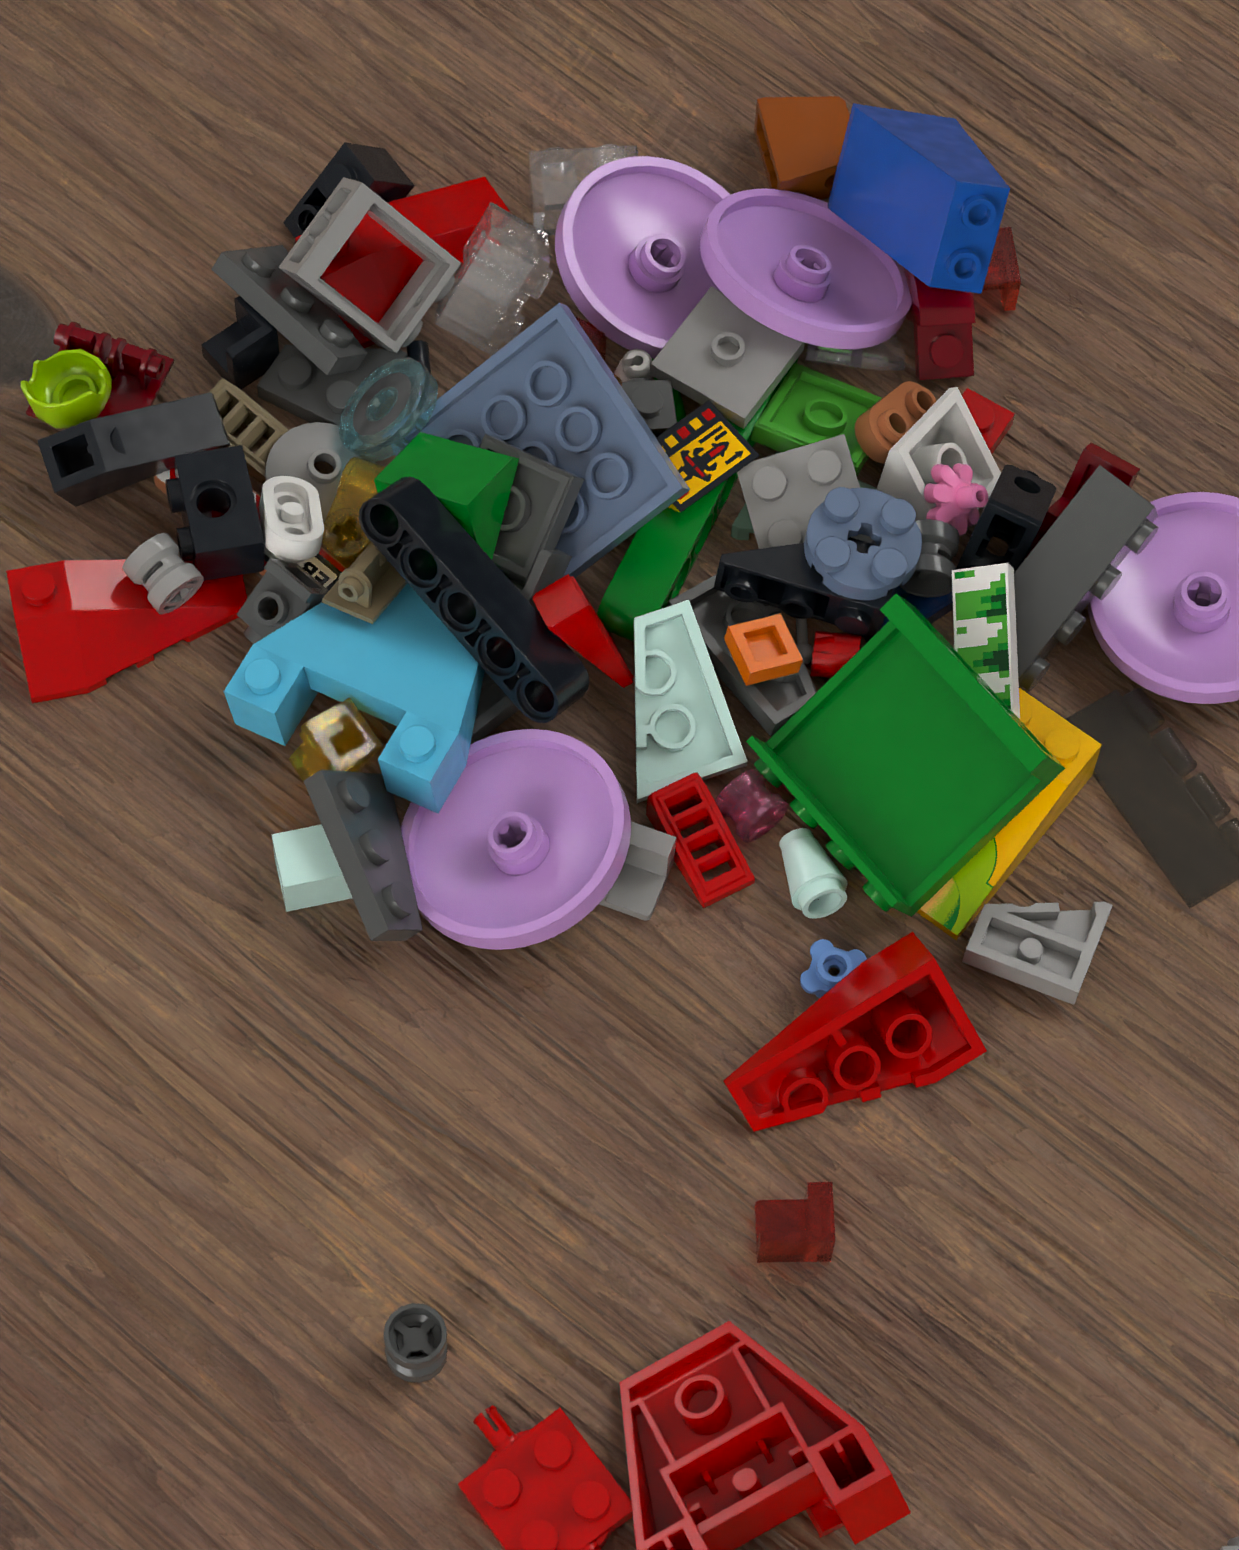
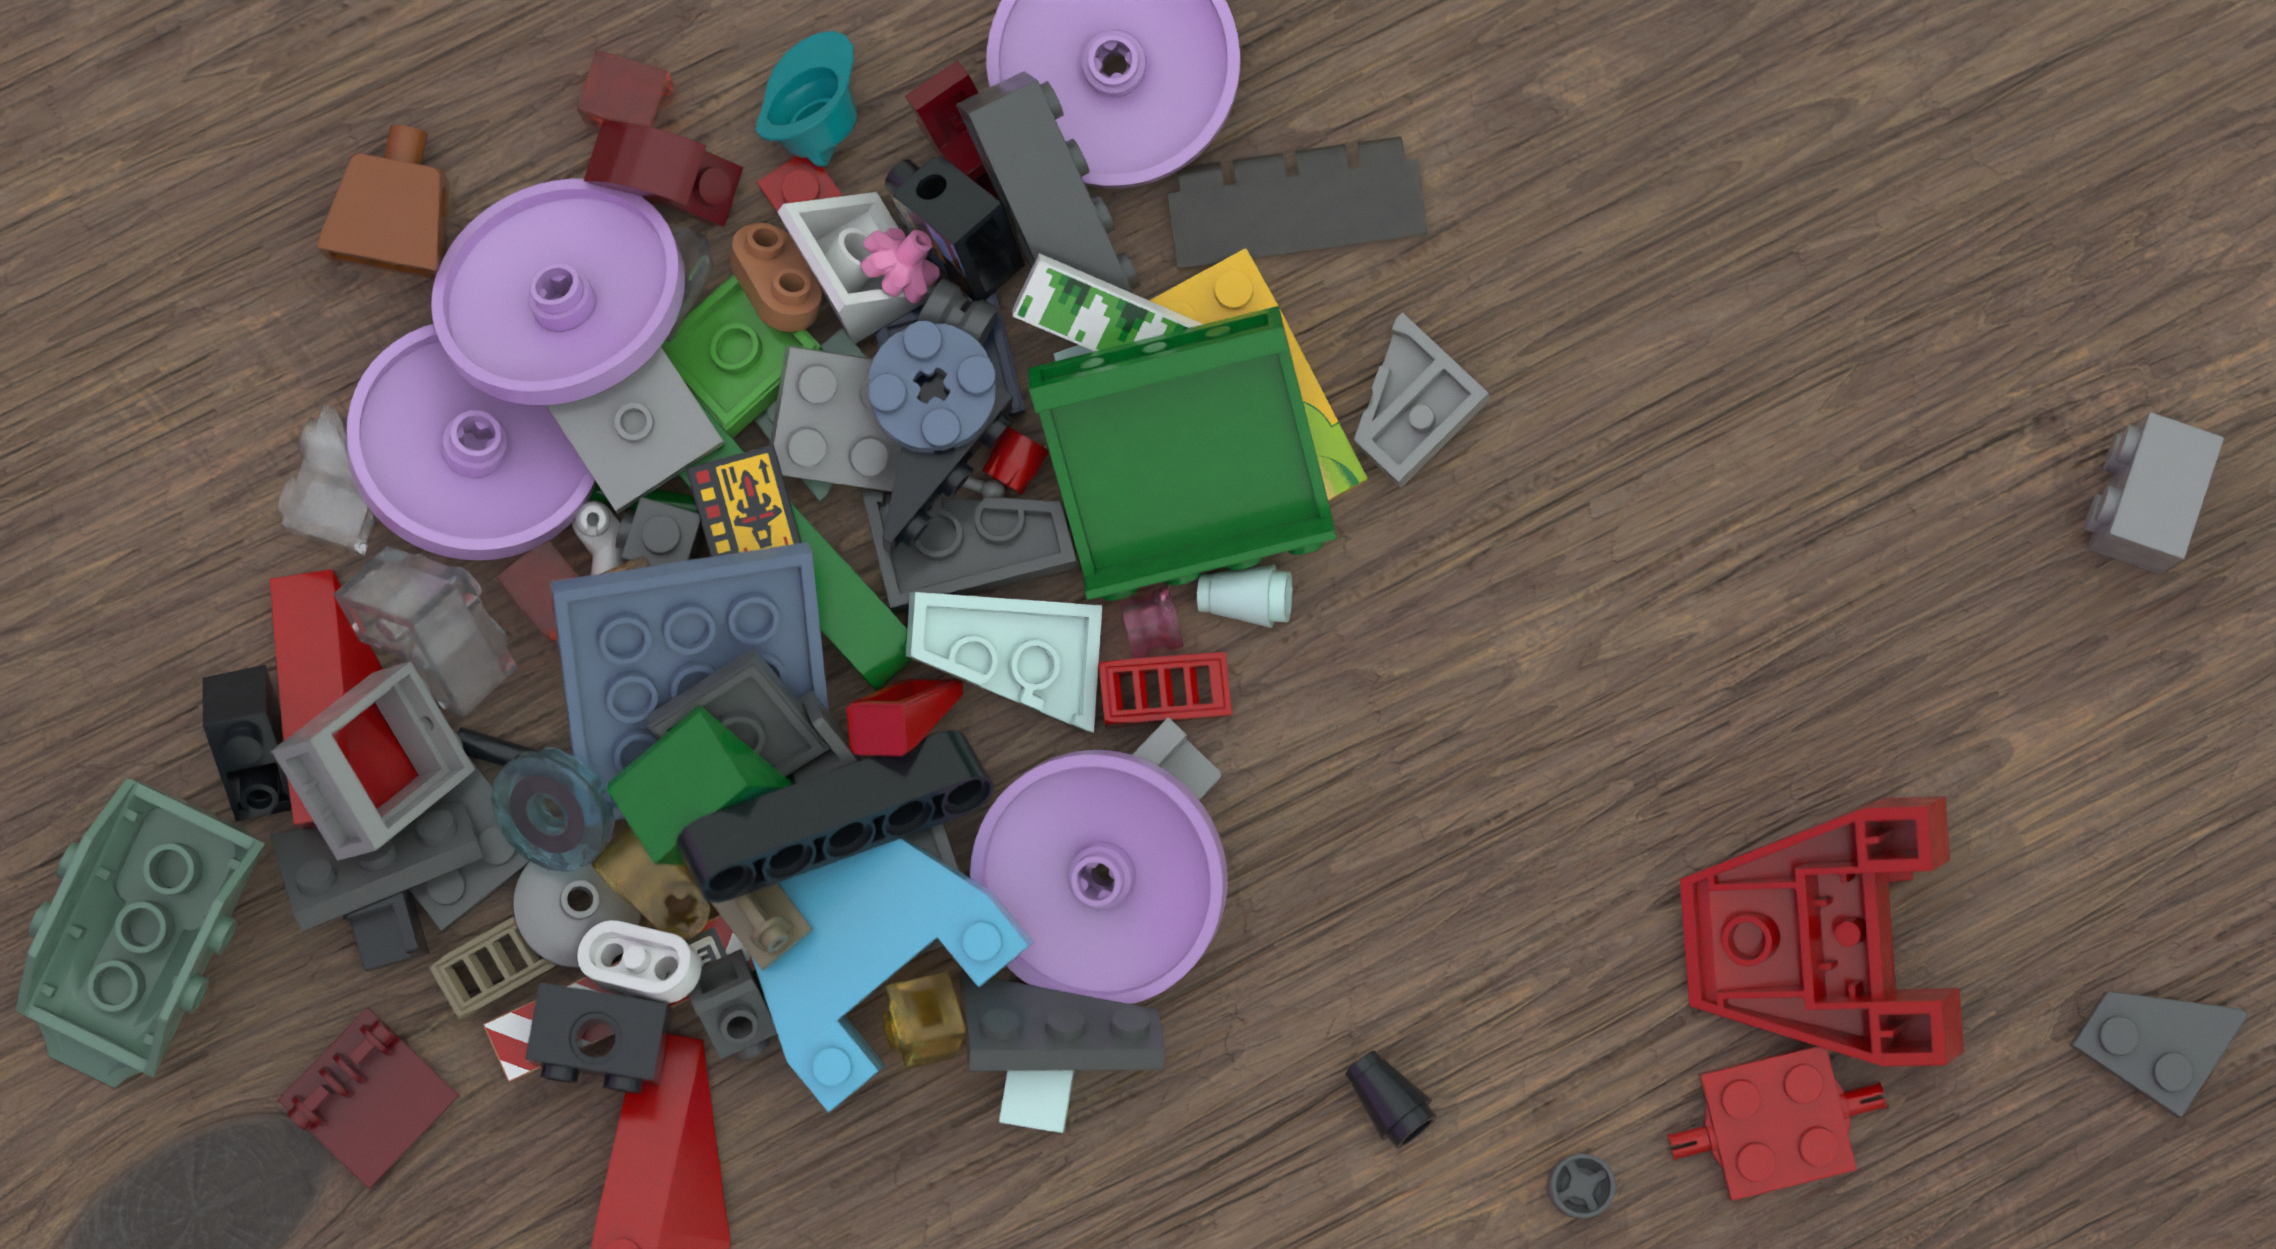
camera: 60 degrees left, 20 degrees up
(68, 388) = (374, 1137): lime hair -> none
(129, 446) = (479, 1094): black slope -> none
(163, 573) = (670, 1118): light grey wheel -> none
(169, 160) = (133, 931): none -> sand green slope
(424, 1155) = (1390, 1099): none -> black cone
(763, 649) = (994, 538): orange plate -> none
(796, 1227) = (1606, 773): clear red panel -> none
(825, 956) = (1341, 619): medium blue plate -> none
(870, 1033) = (1438, 605): red wedge -> none
(920, 194) = (542, 135): blue slope -> none
(1047, 400) = (810, 98): none -> teal piece

